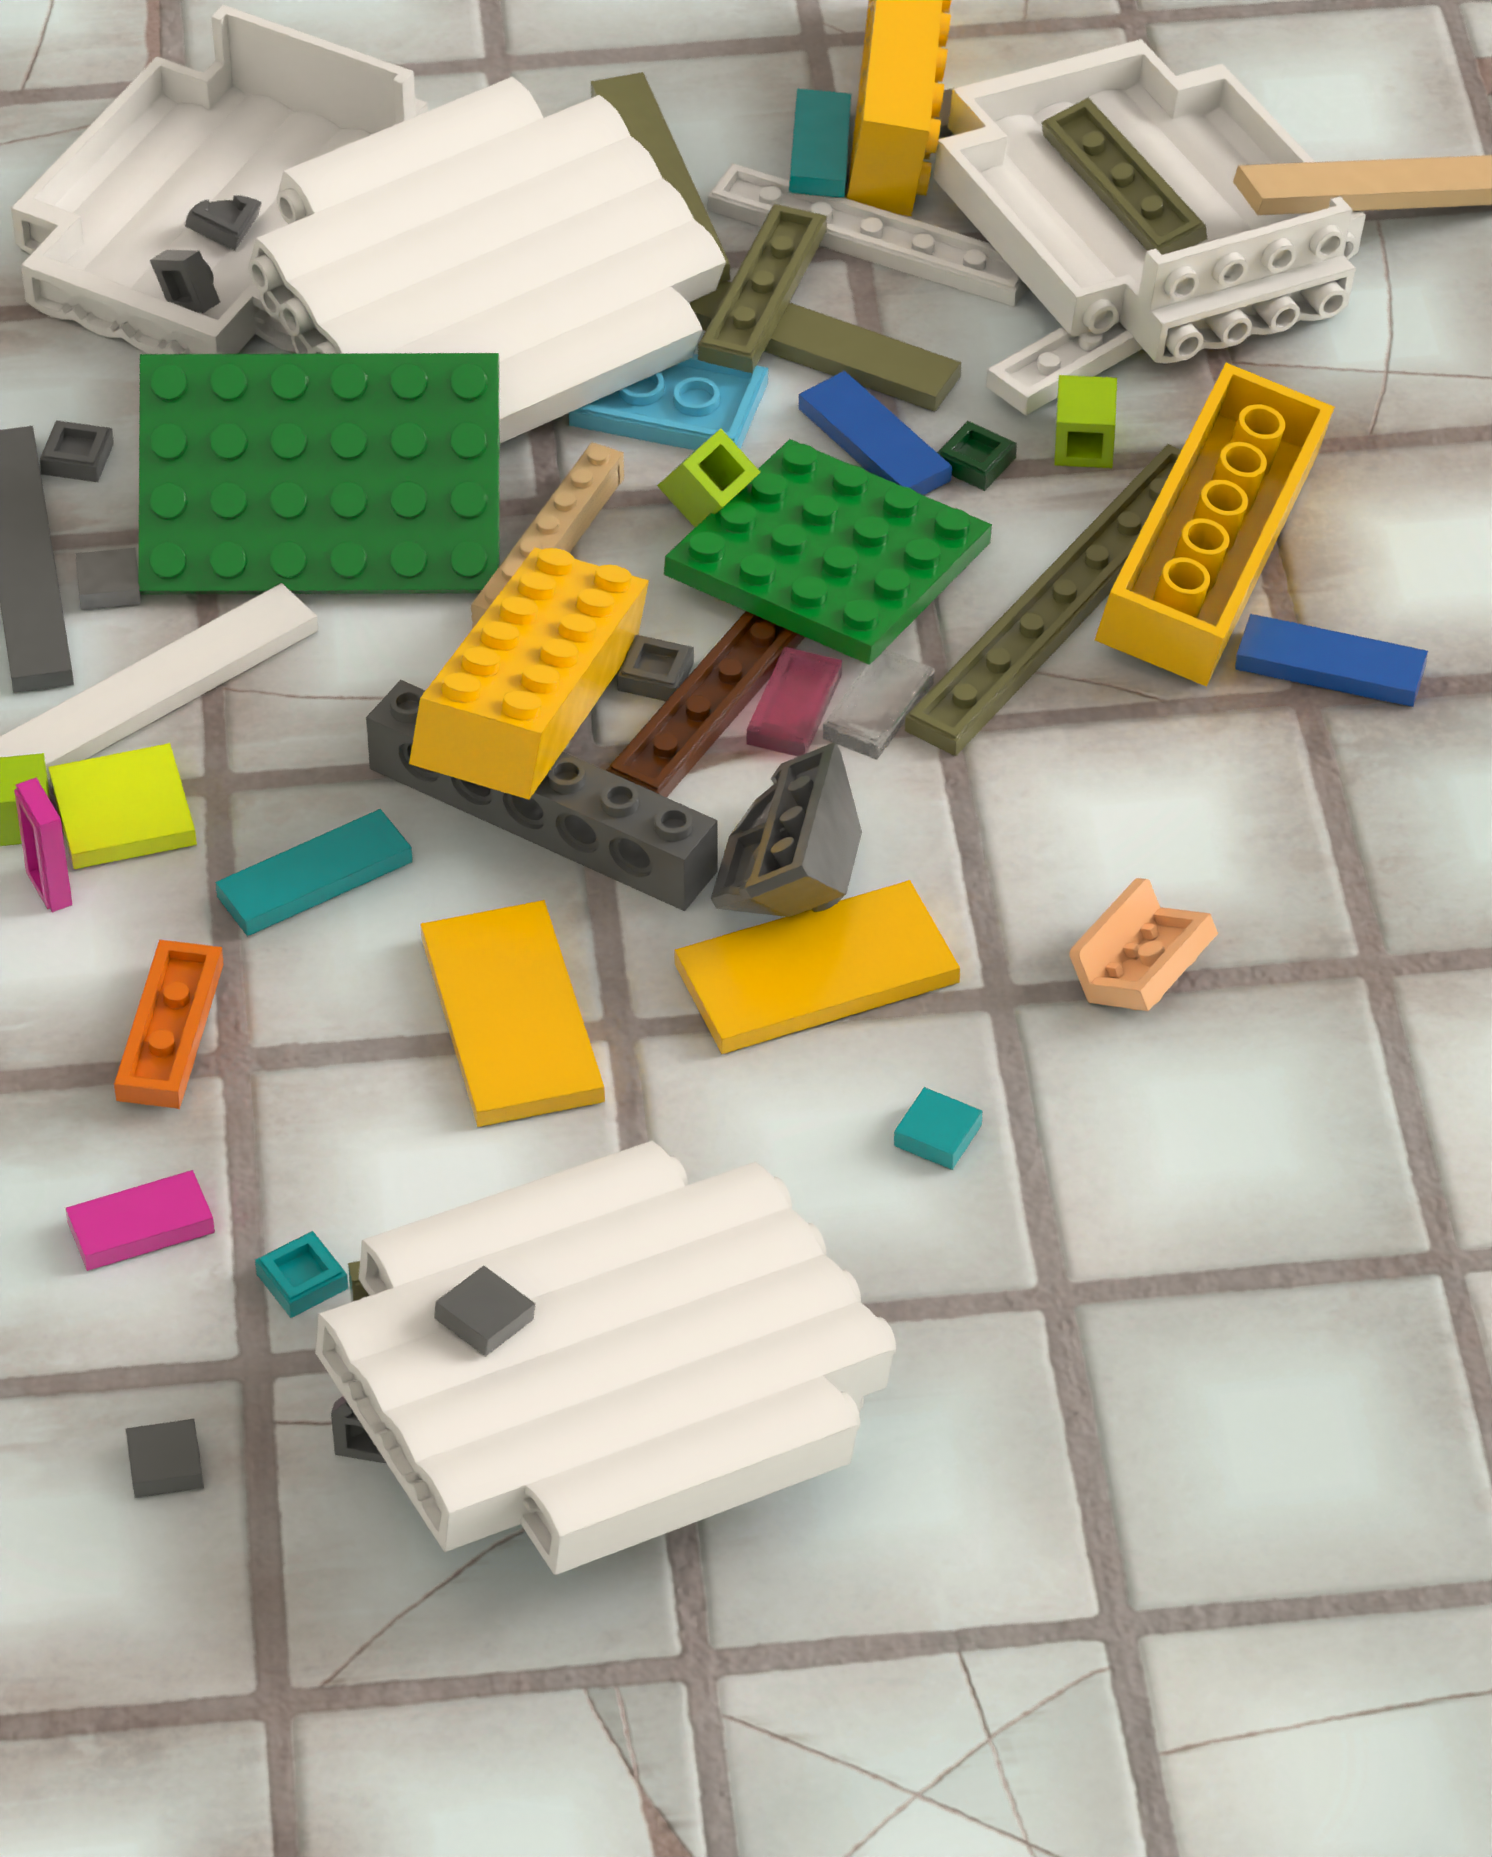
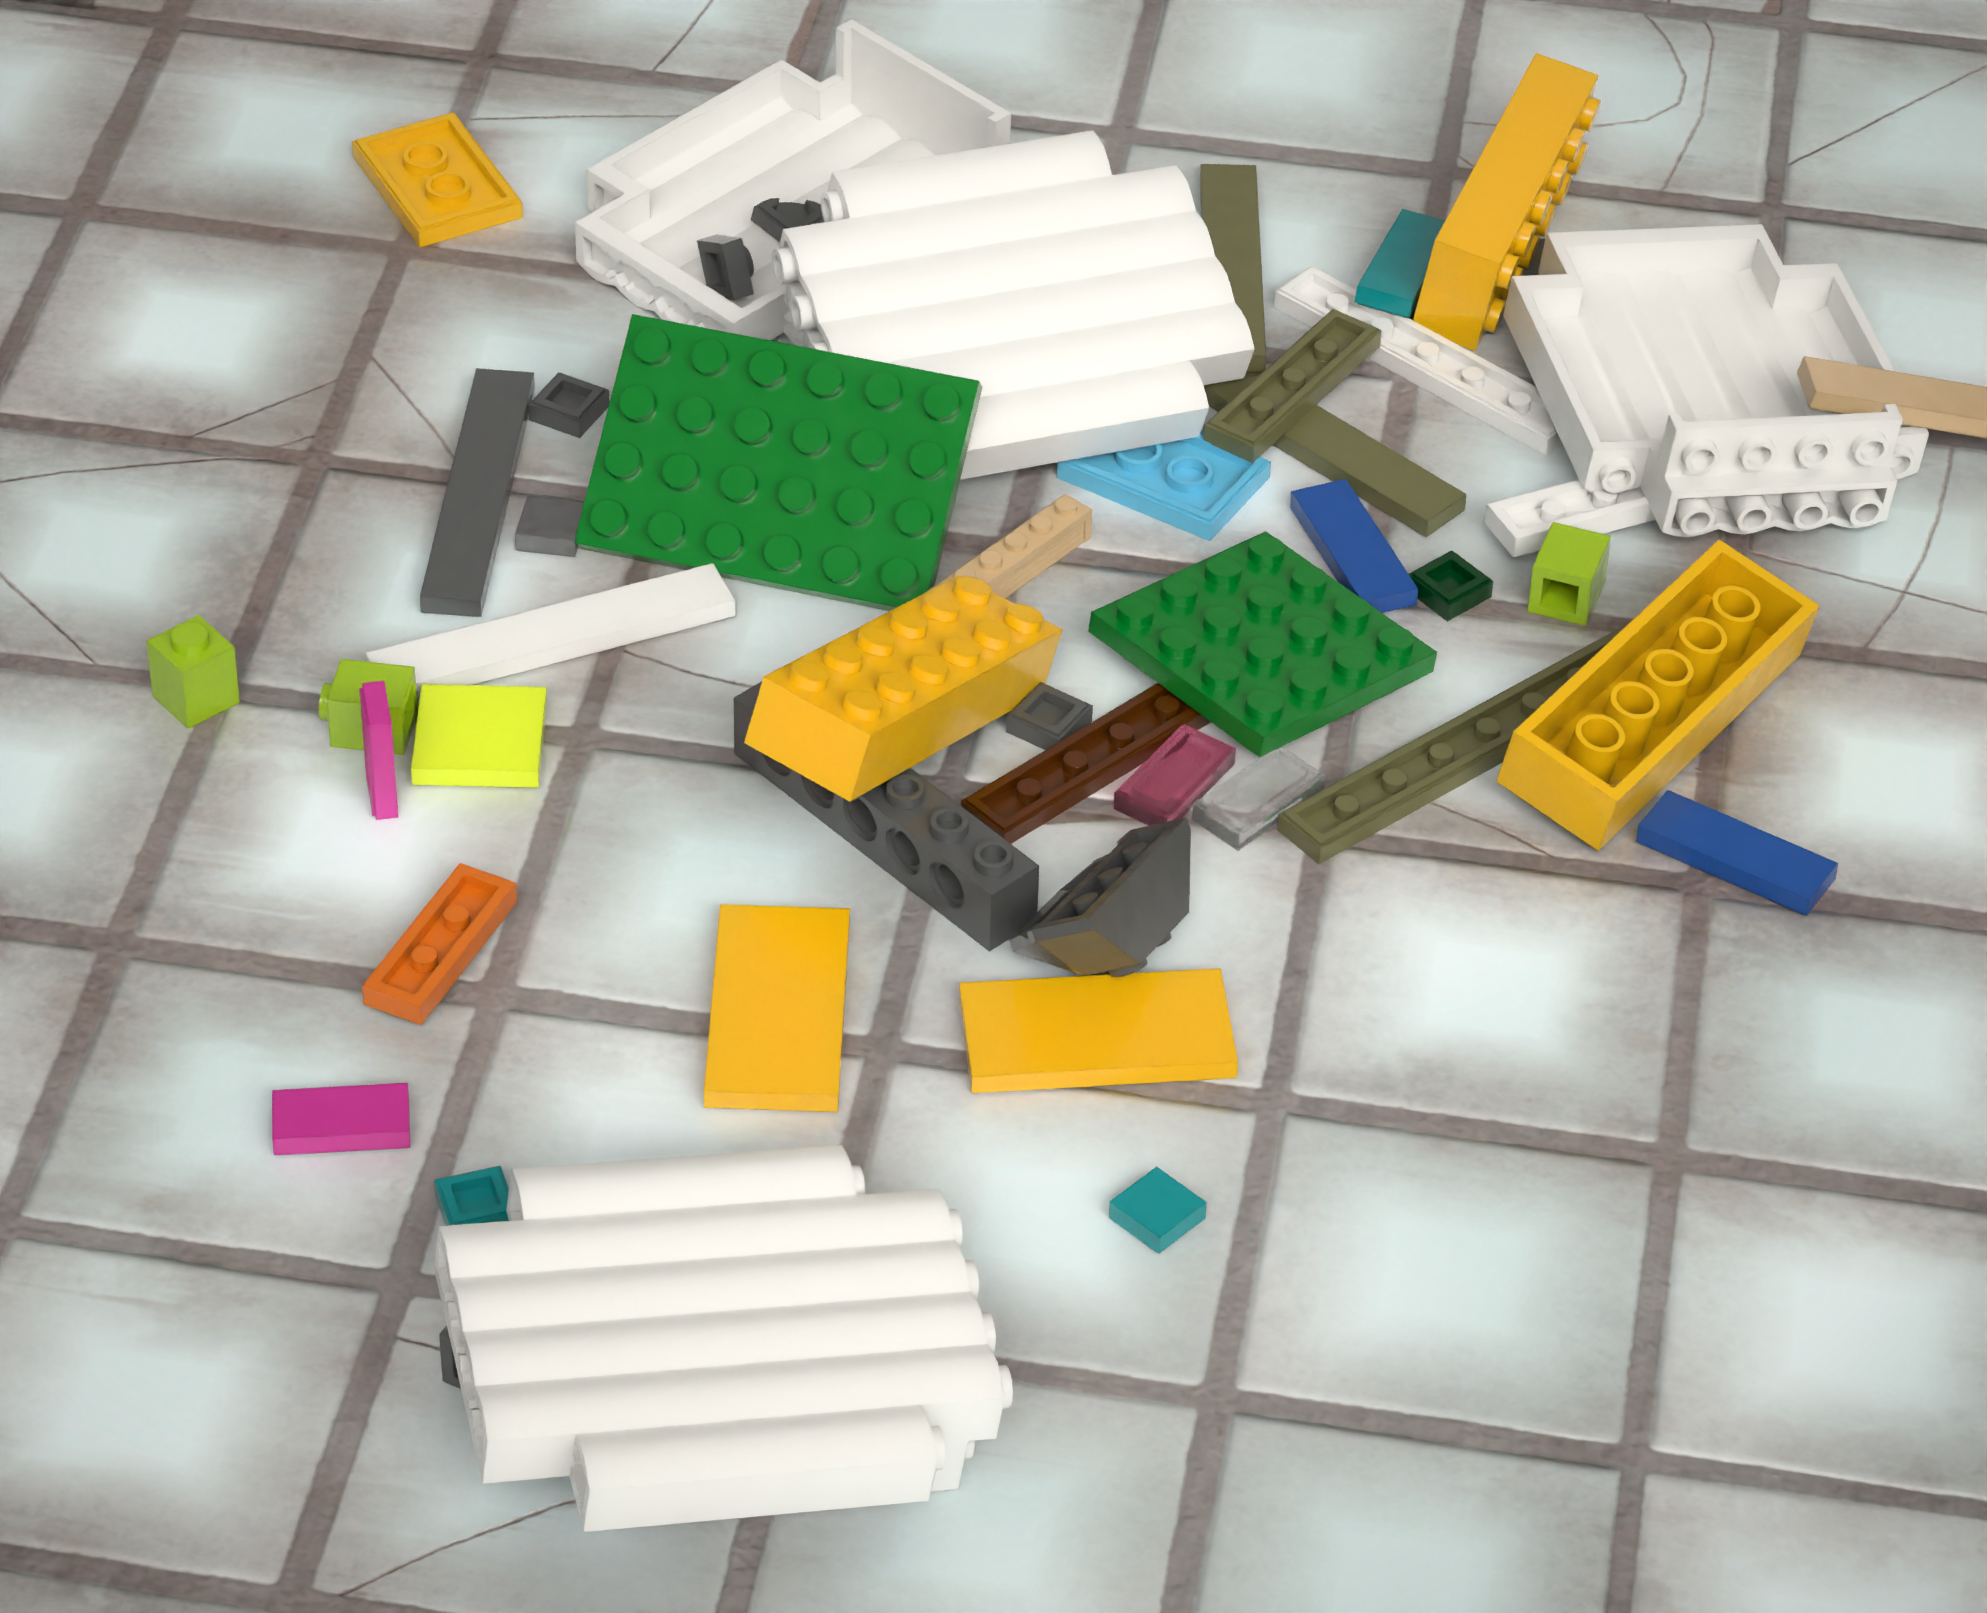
camera: 15 degrees right, 5 degrees down
(164, 1458) = (274, 1344): dark grey tile -> none
(313, 872) = (638, 835): teal tile -> none
(484, 1310) = (598, 1259): dark grey tile -> none
(708, 478) = (1163, 546): lime brick -> none
(1123, 179) = (1691, 348): olive tile -> none
(1138, 949) = (1423, 1082): light nougat bracket -> none

